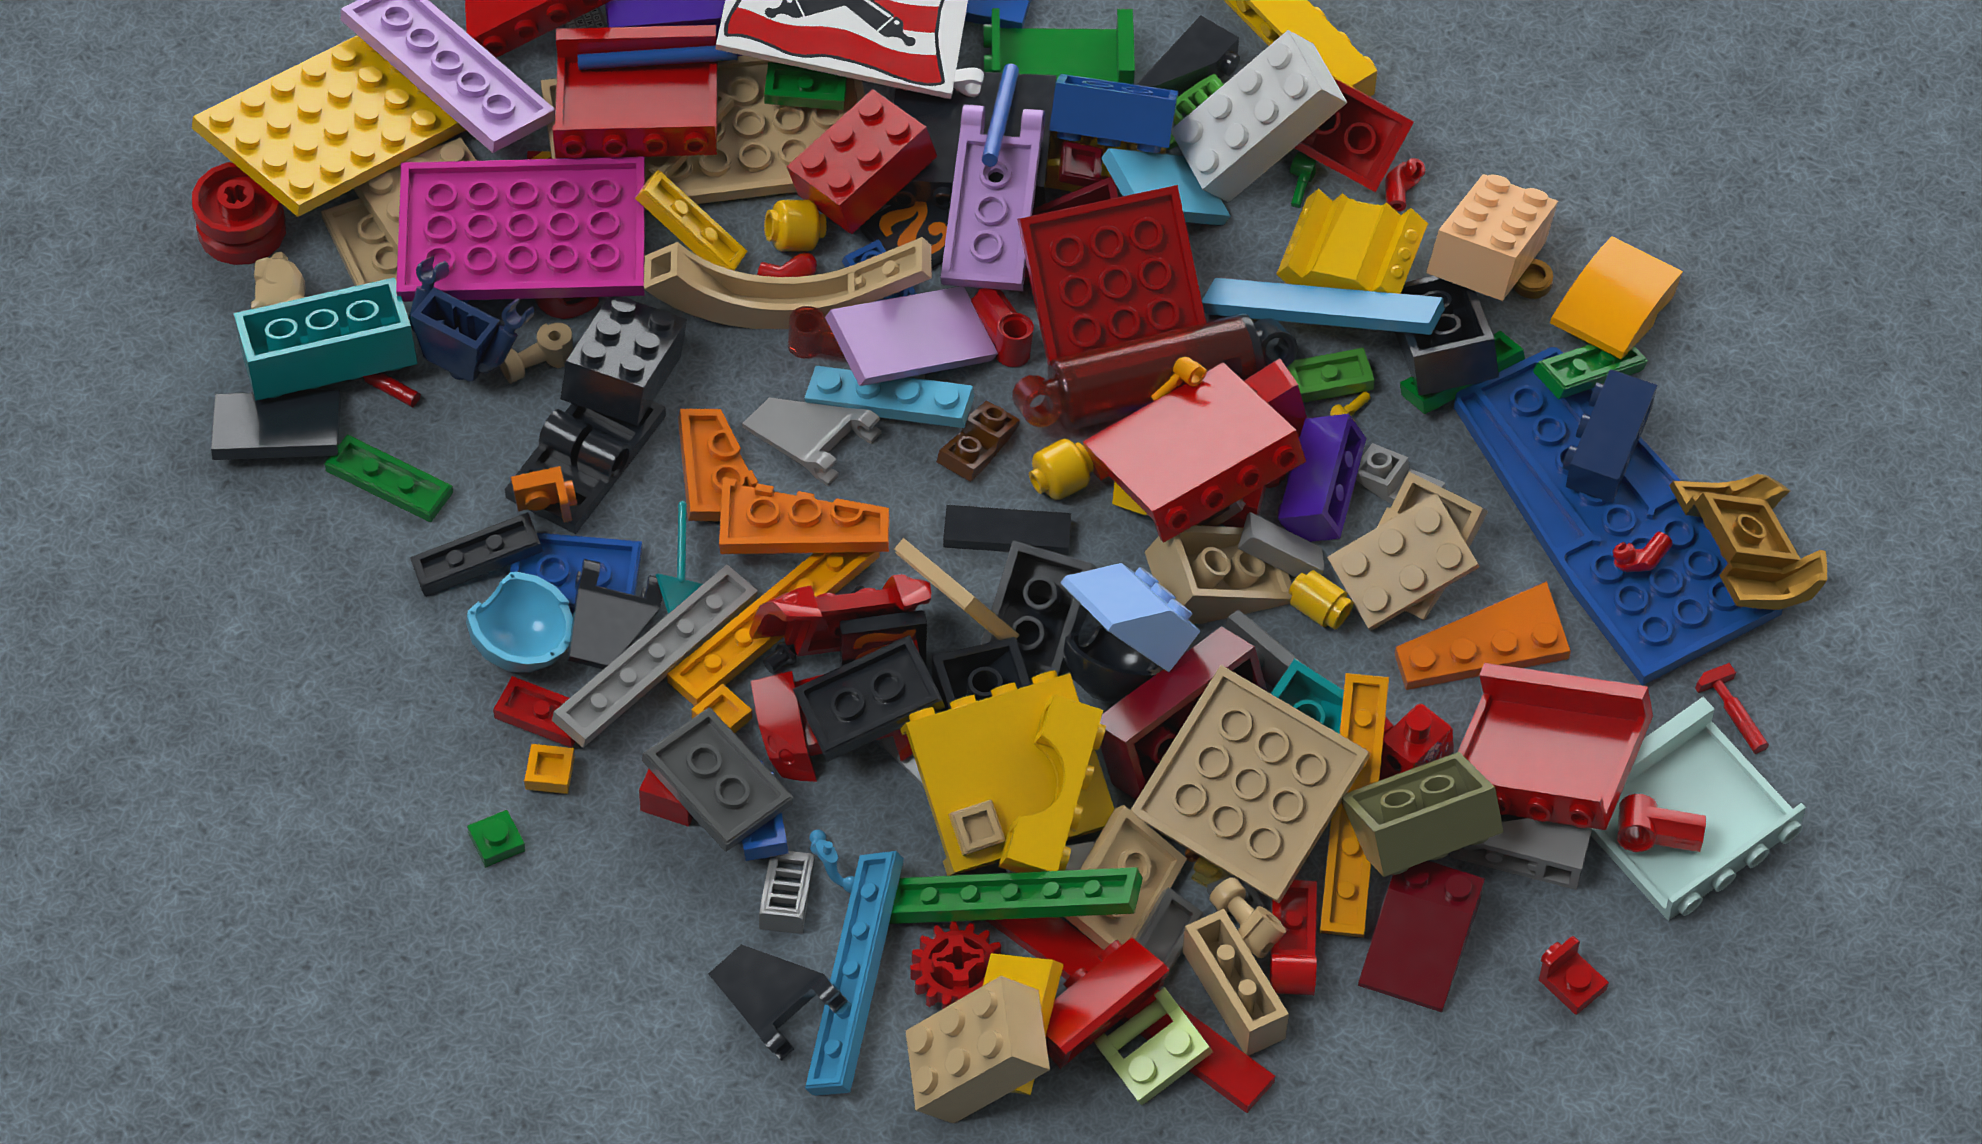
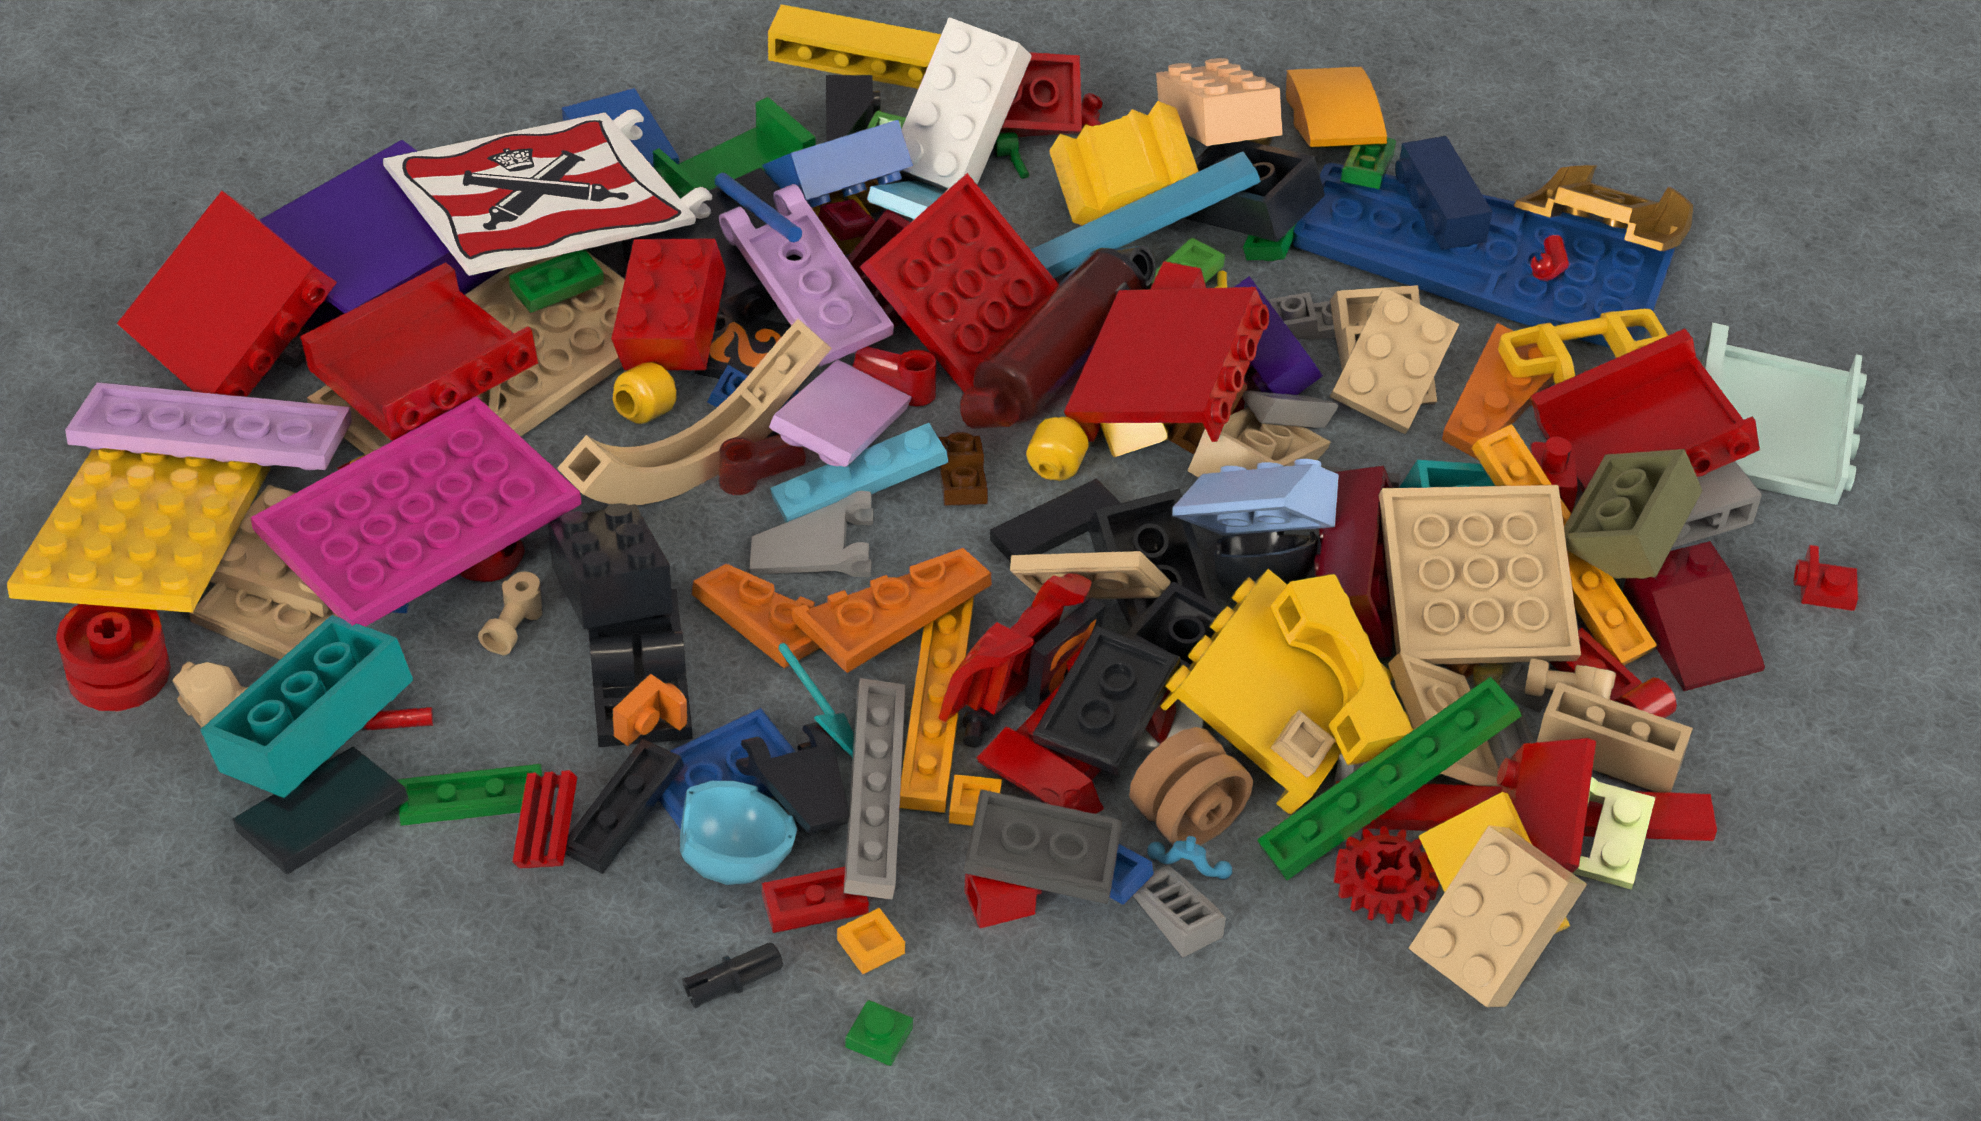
camera: 40 degrees left, 10 degrees down
(411, 530) = (537, 819): none -> red tile
(435, 729) = (732, 974): none -> black axle
(457, 333) = (443, 625): dark blue torso -> none
(653, 57) = (408, 318): blue bar -> none
(689, 222) = (549, 426): yellow tile -> none
(771, 992) = (1258, 996): black flag -> none
(798, 266) = (677, 421): red arm -> none
(855, 973) = (1311, 937): dark azure tile -> none
(868, 806) = (1191, 787): none -> medium nougat wheel
(1185, 370) = (1101, 307): light orange hand -> none
(1320, 599) = (1355, 427): yellow brick -> none
(1561, 619) = (1556, 356): none -> yellow bar
(1646, 825) = (1783, 432): red piece -> none
(1715, 679) = (1736, 339): red piece -> none

